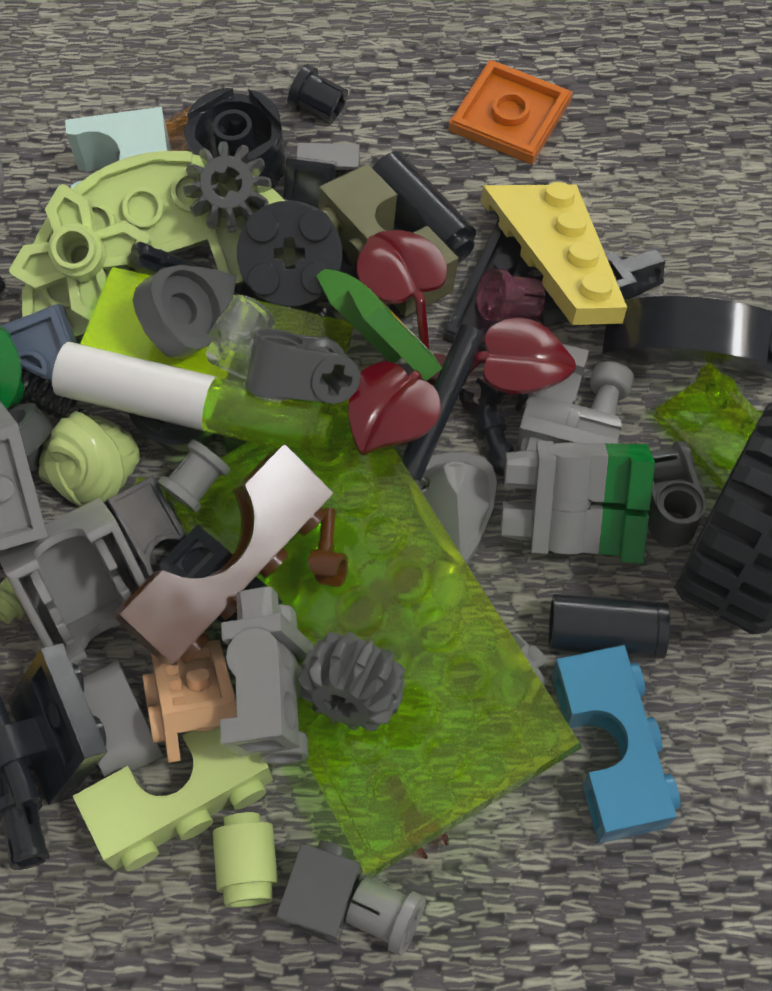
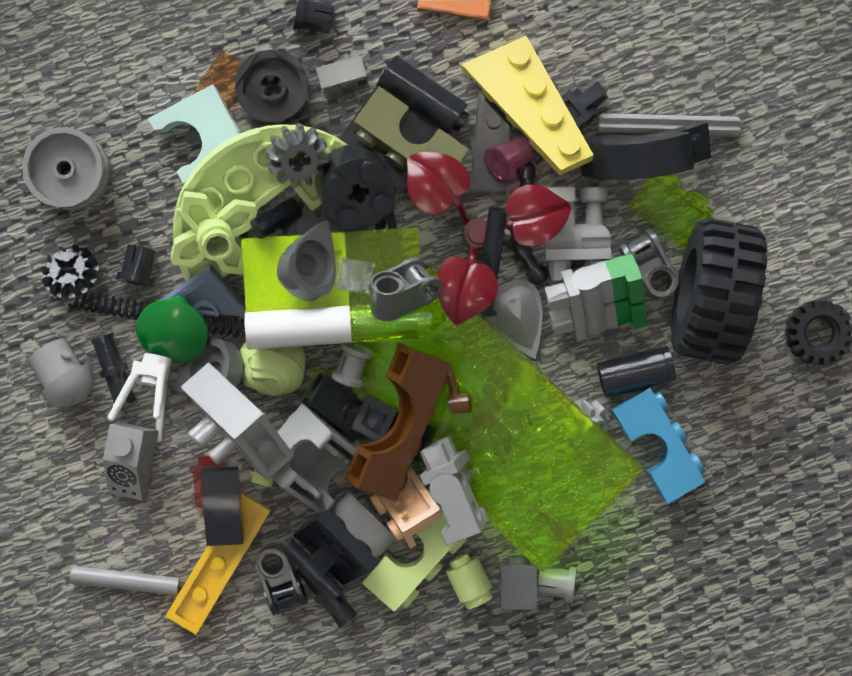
camera: 15 degrees left, 25 degrees up
(305, 177) = (336, 99): black tile -> none
(352, 681) = (503, 478): dark grey gear -> none
(377, 322) = (442, 231): bright green slope -> none

